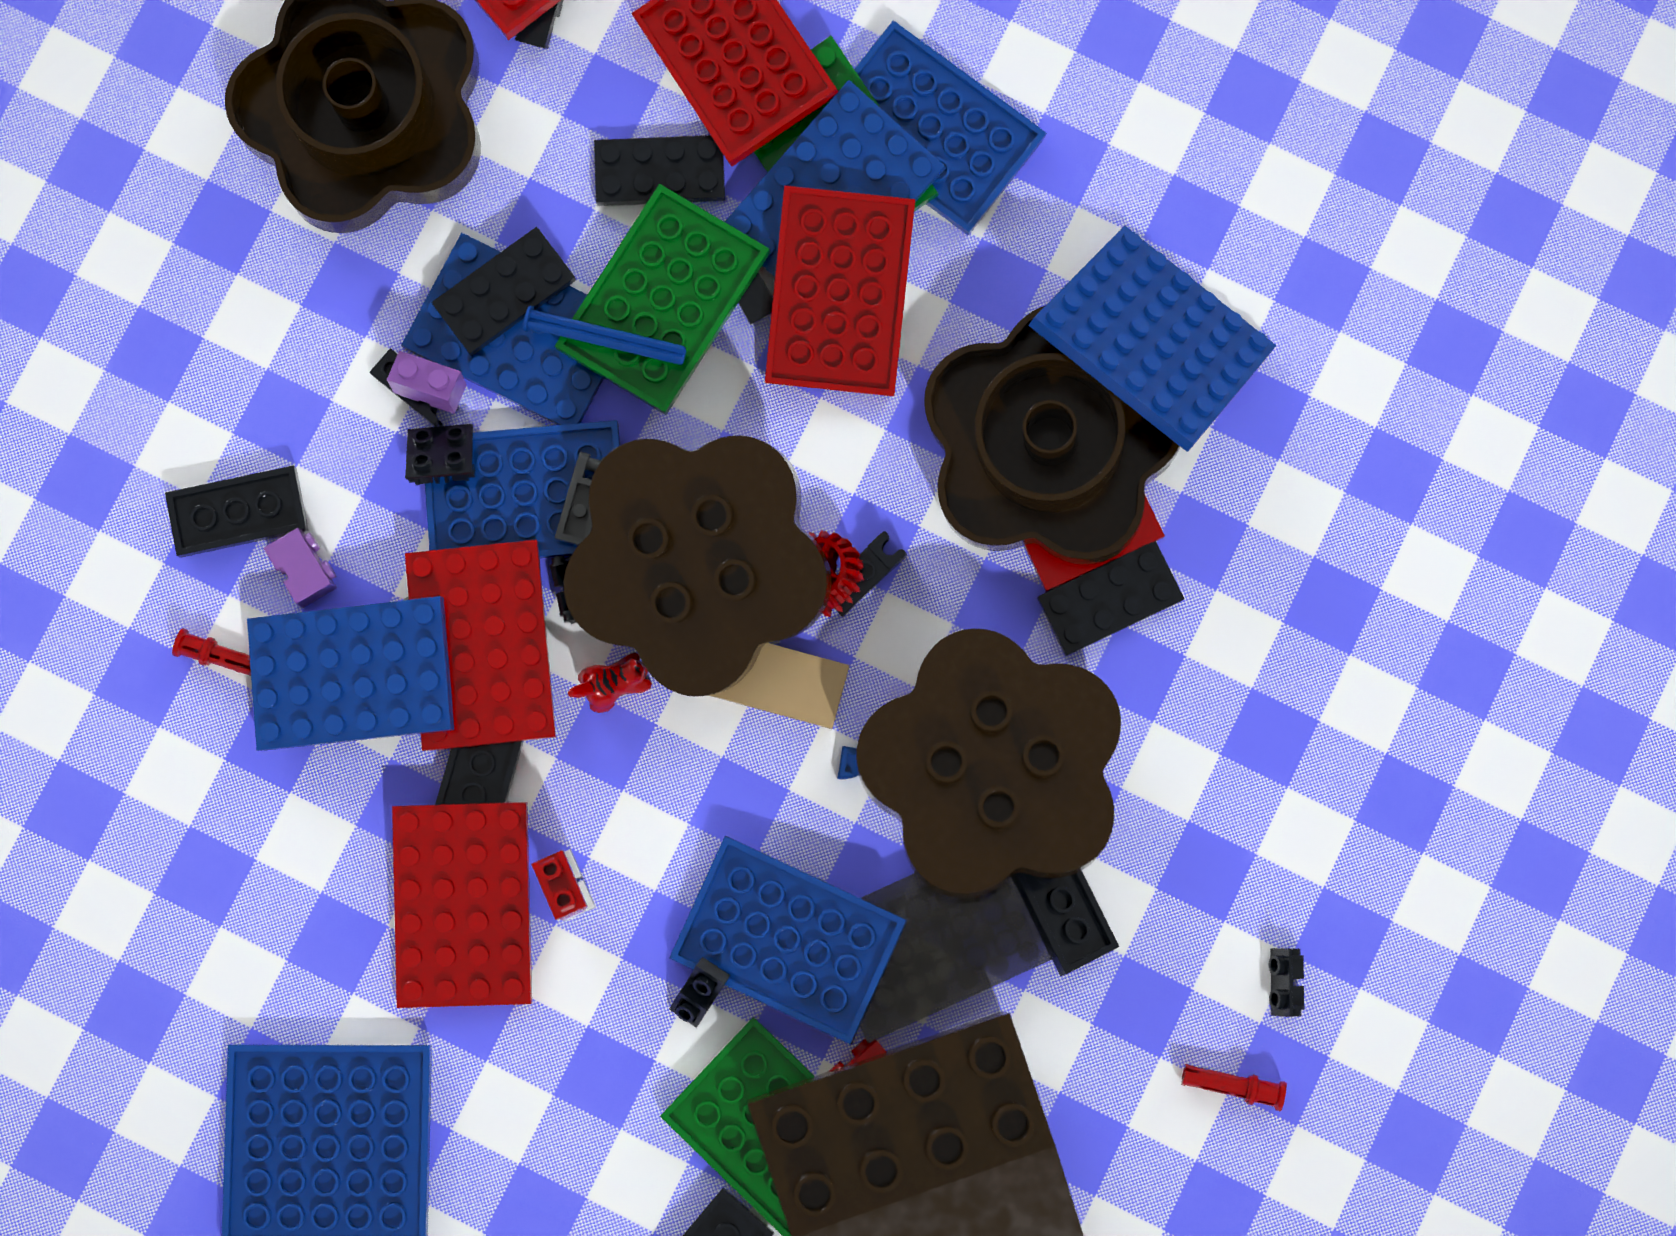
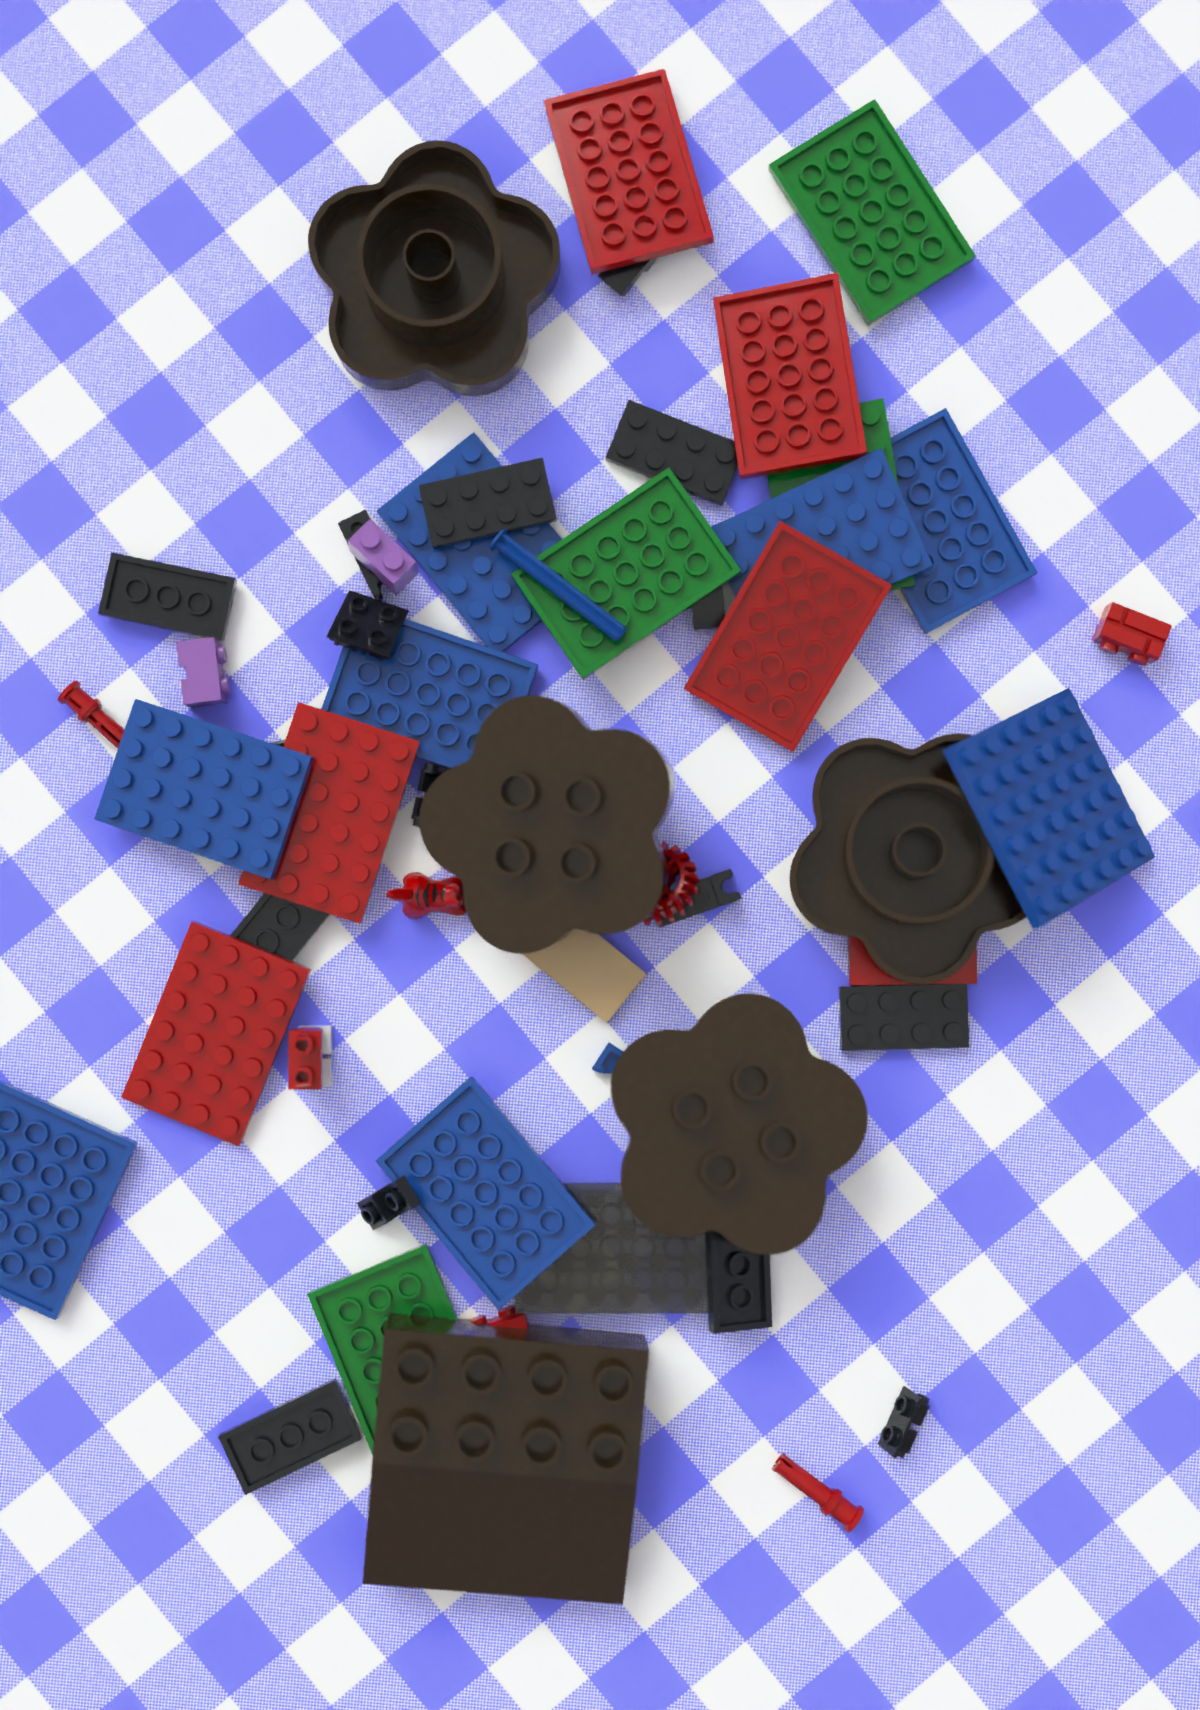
camera: 25 degrees right, 5 degrees up
(575, 519) = (460, 740): dark grey plate -> none
(1159, 150) = (1131, 634): none -> red brick

